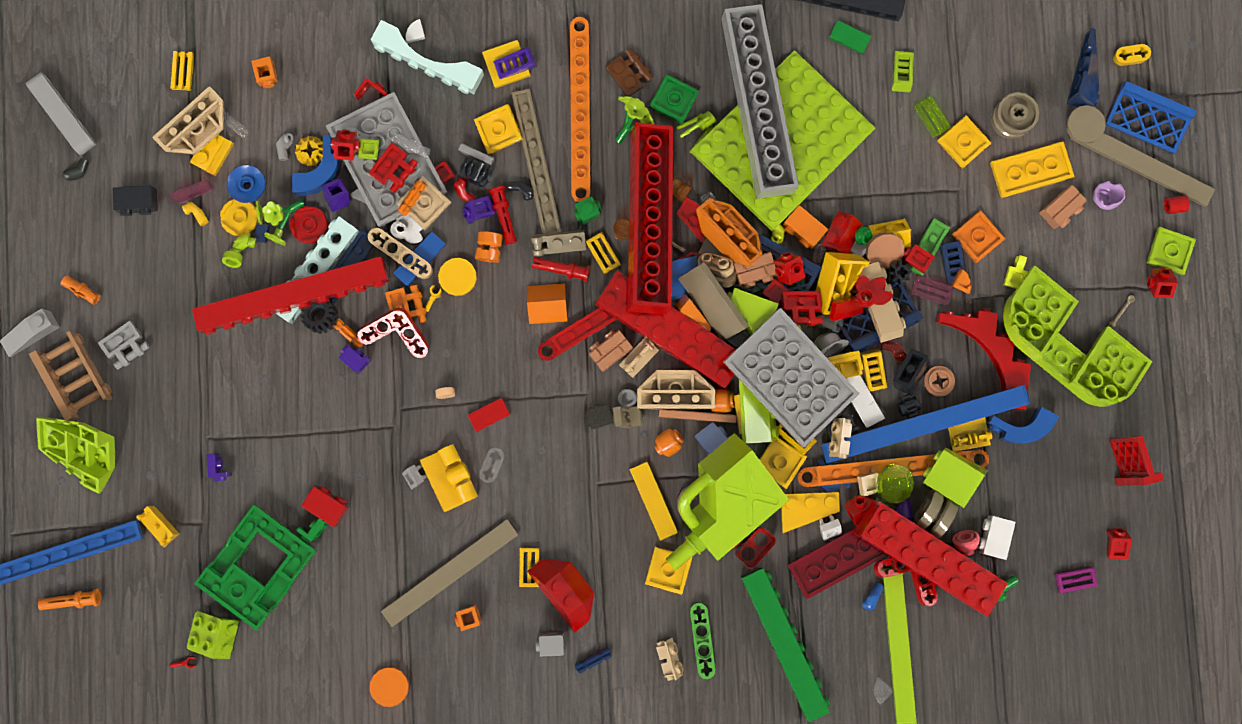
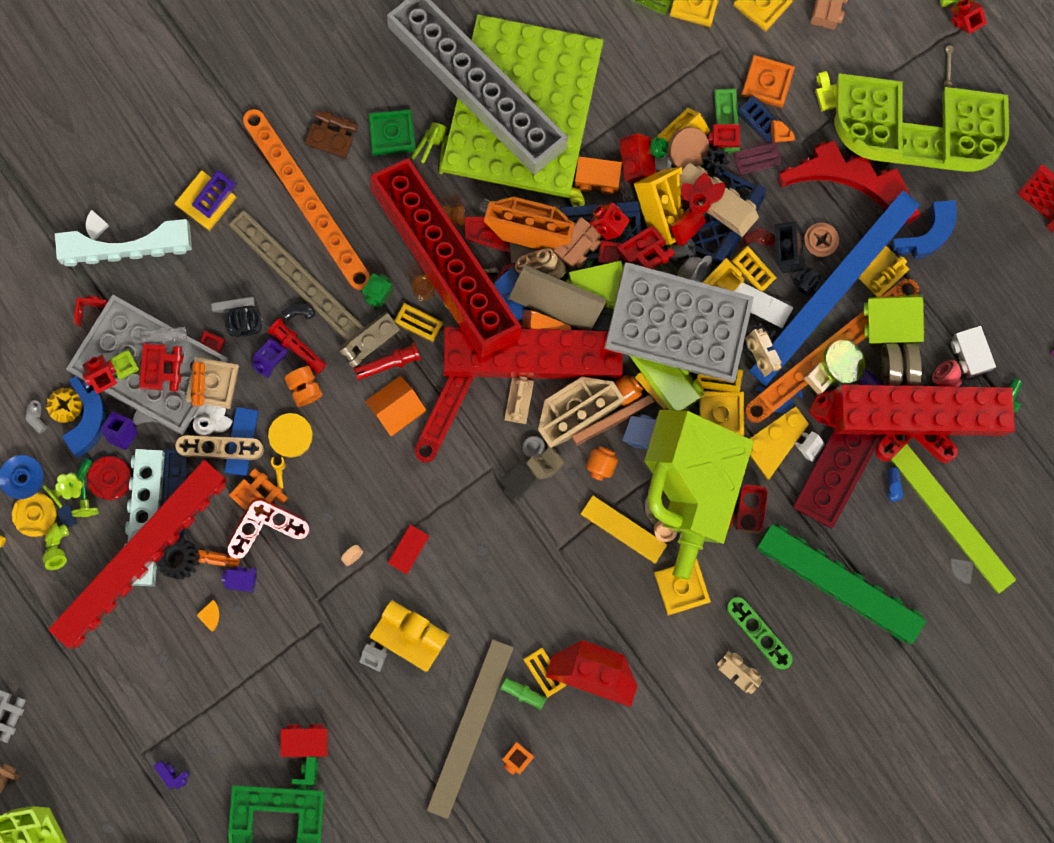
camera: 30 degrees left, 5 degrees down
(317, 371) = (210, 615): none -> light orange tile
(461, 191) = (240, 350): red arm -> none
(487, 463) = (448, 595): clear beam -> none
(498, 129) = (238, 267): yellow tile -> none
(503, 572) = (523, 693): none -> bright green pin
(551, 643) = (615, 730): light grey brick -> none
(593, 660) = (666, 722): dark blue axle -> none
(610, 350) = (487, 411): nougat brick -> none
(634, 109) = (362, 163): lime plant -> none
(679, 524) = (663, 534): none -> light nougat tile

